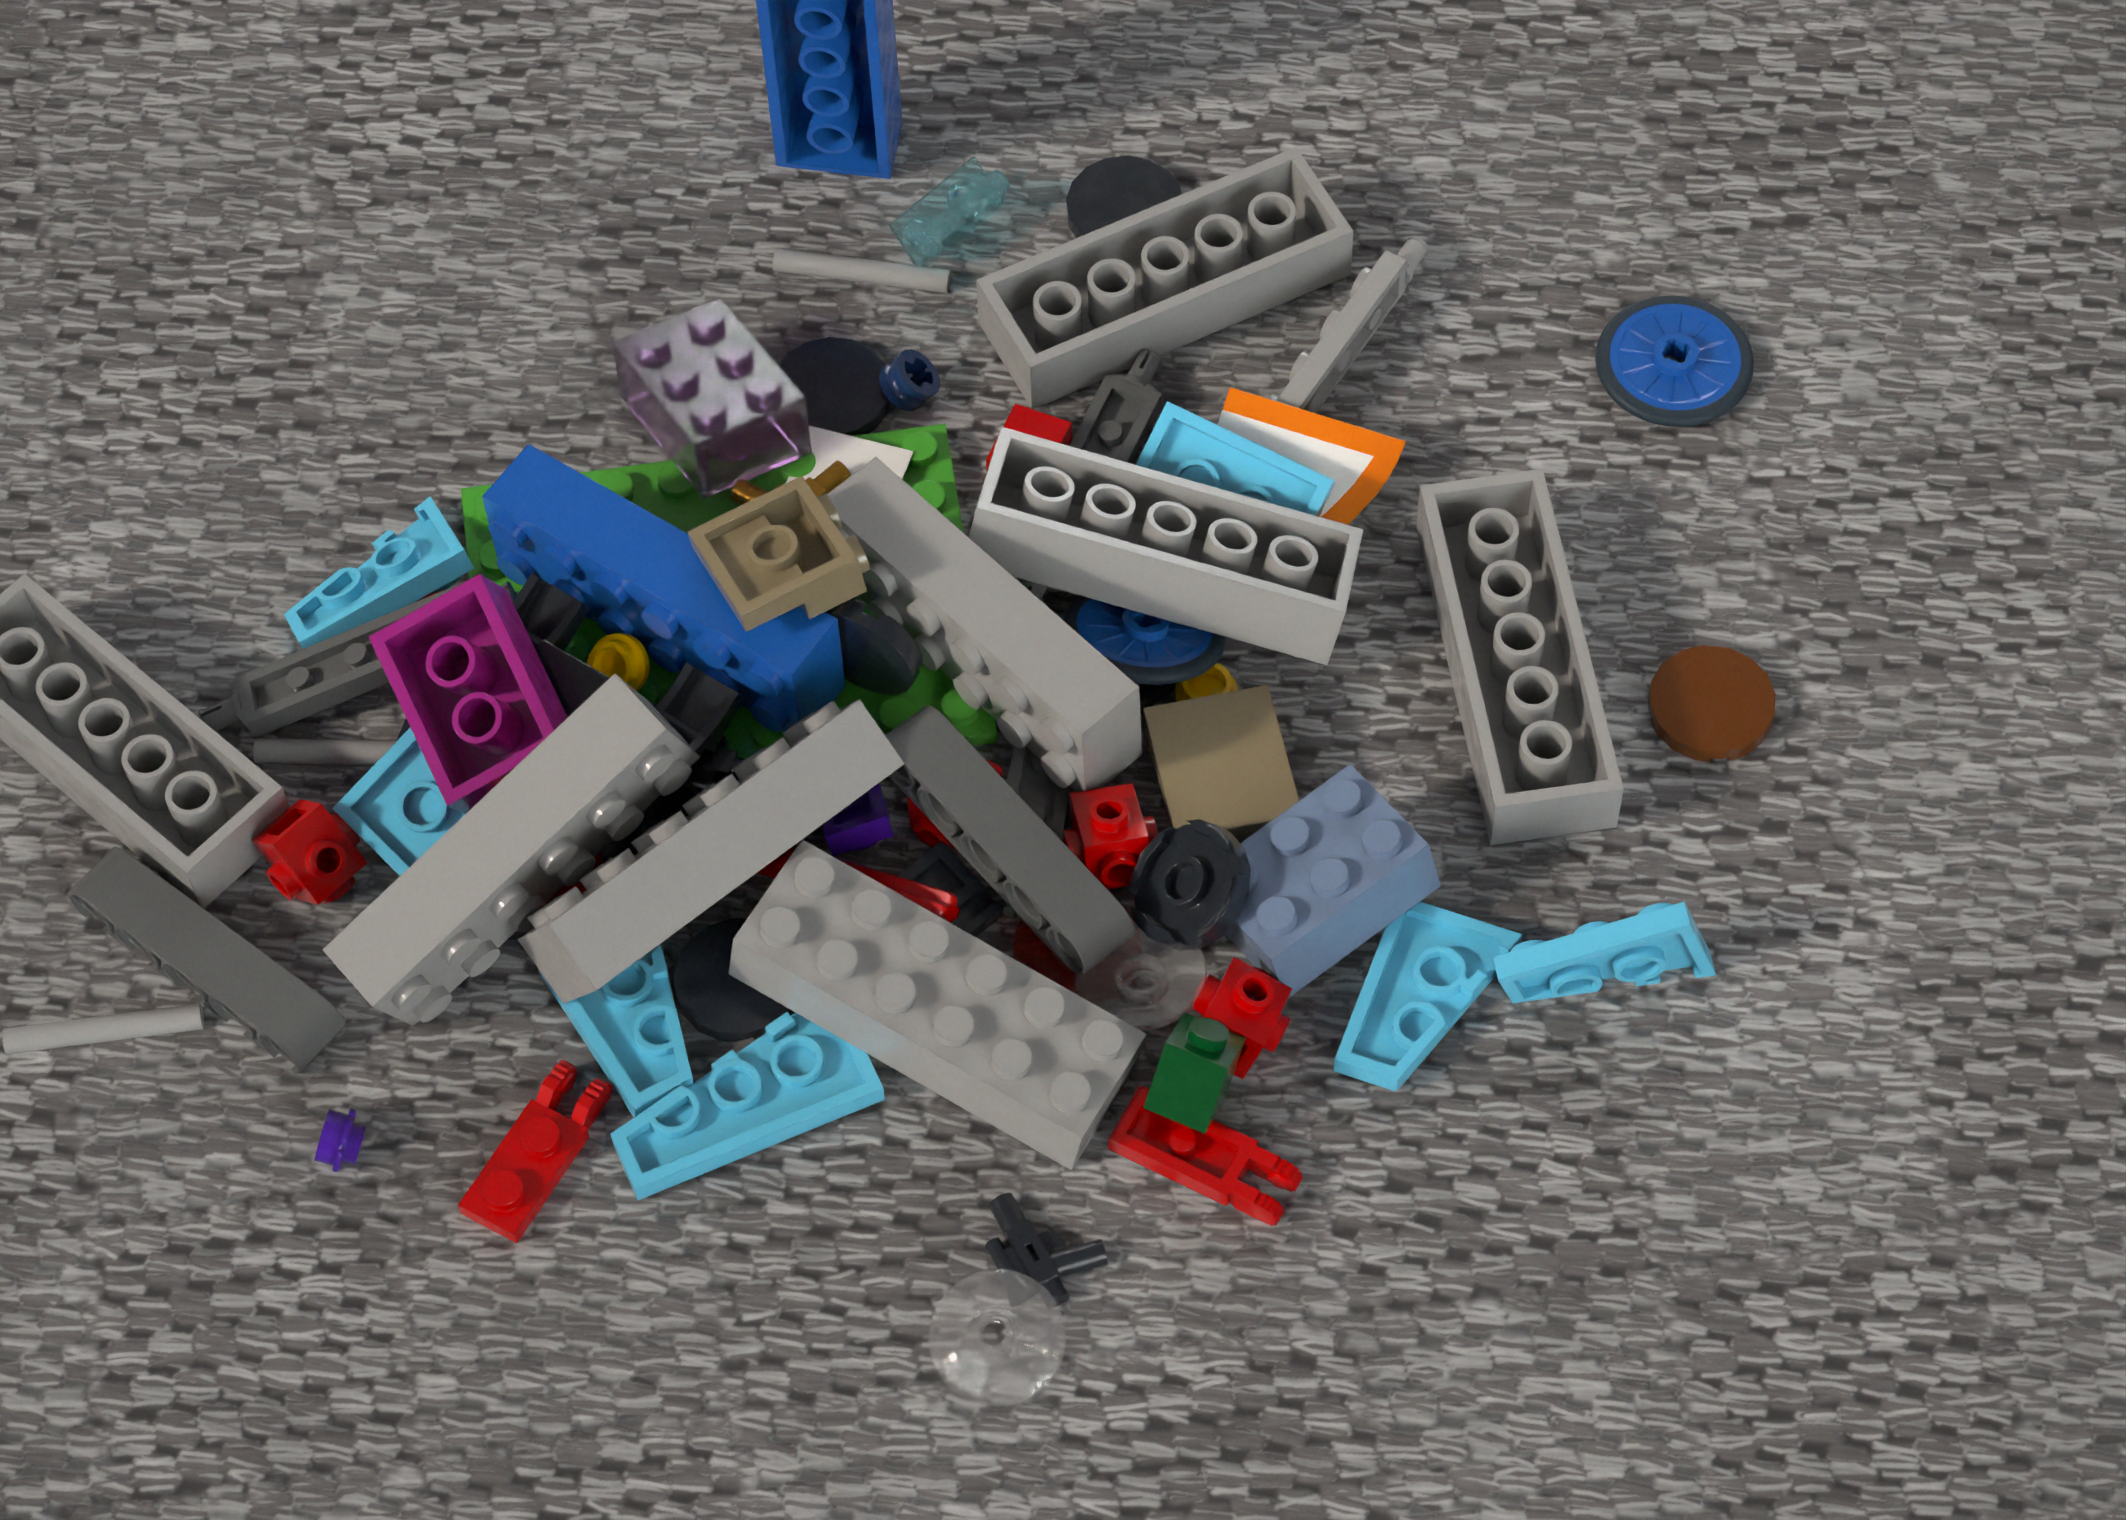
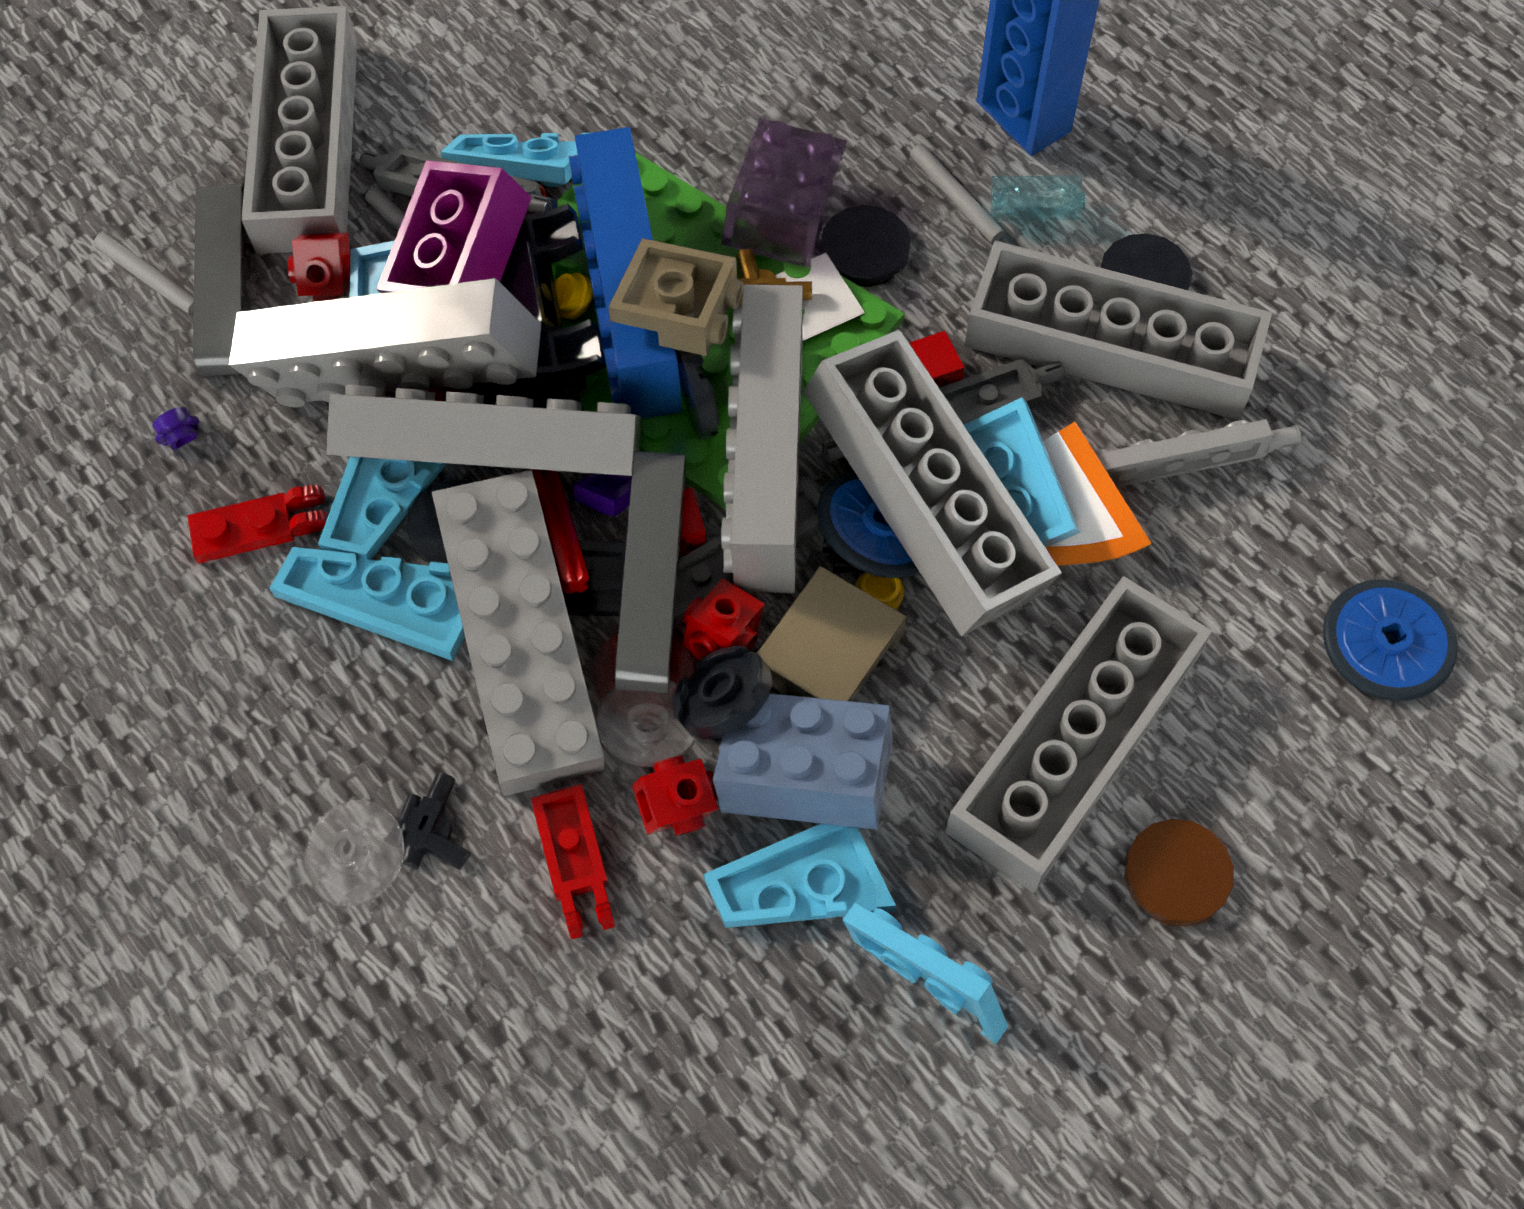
camera: 45 degrees right, 5 degrees up
(909, 380) = (897, 272): dark blue bush -> none
(1194, 1072) = (606, 805): dark green brick -> none

